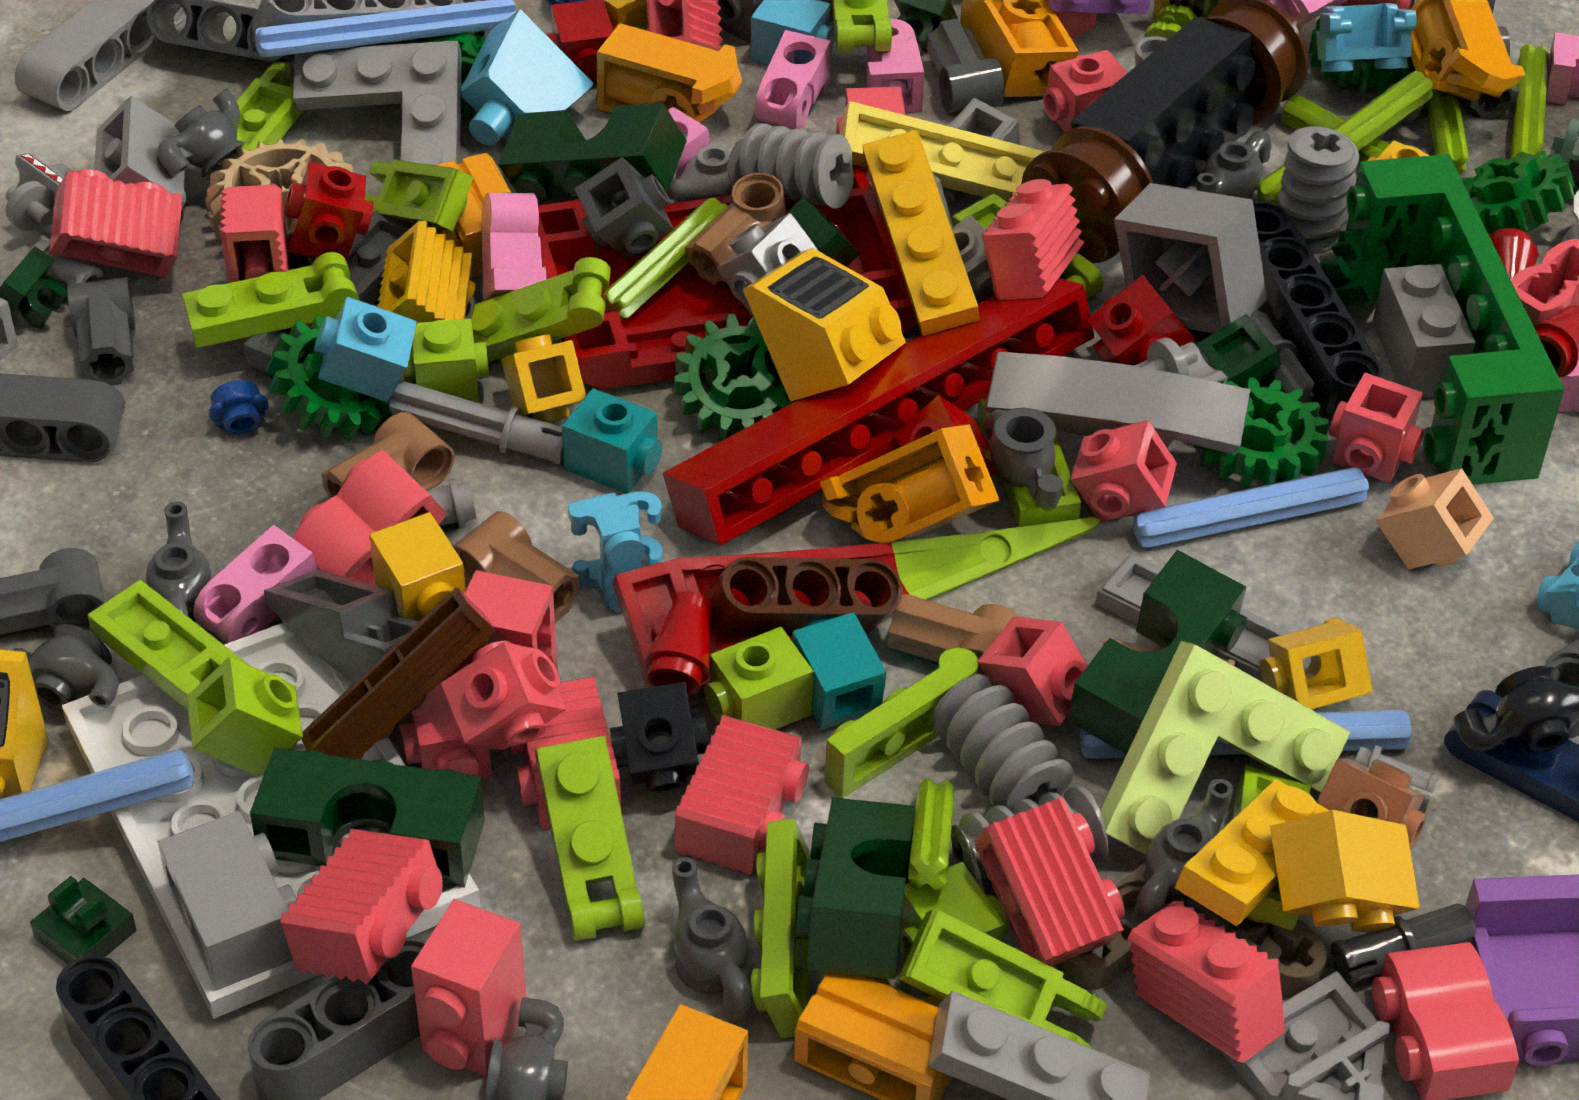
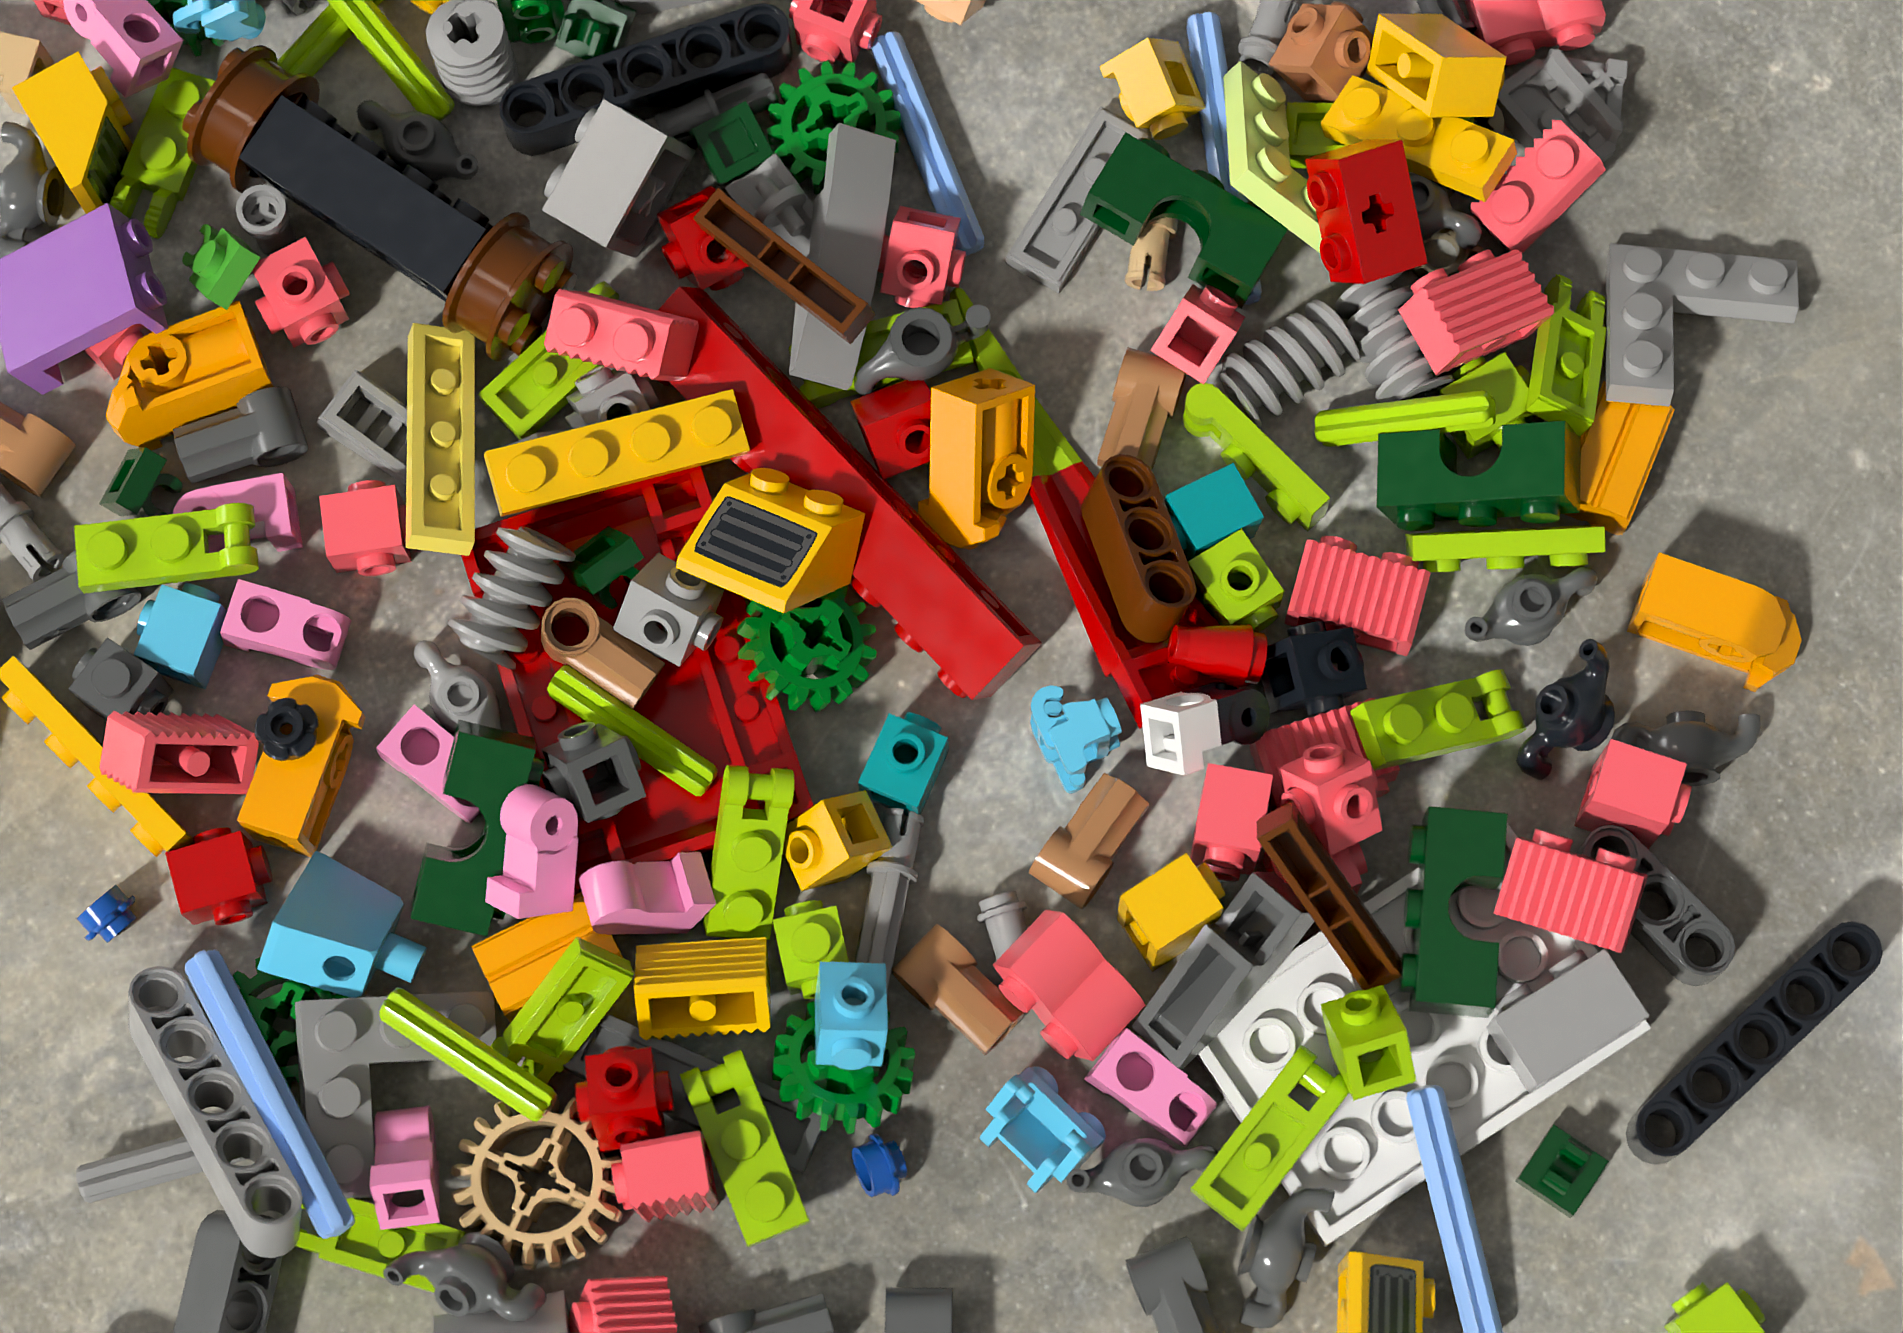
camera: 90 degrees left, 30 degrees up
(241, 506) = (1042, 1127): none -> medium azure piece
(299, 112) = (405, 1163): none -> bright pink leg
(396, 126) = (467, 1054): none -> lime axle
(553, 169) = (537, 855): none -> bright pink leg
(581, 958) = (1570, 713): none -> black piece
(607, 615) = (1200, 719): none -> white leg
(688, 41) = (292, 745): none -> black plate
(1091, 324) = (784, 266): none -> reddish brown piece
(1105, 35) = (220, 265): none -> bright green plate
(1194, 770) = (1365, 211): none -> red brick

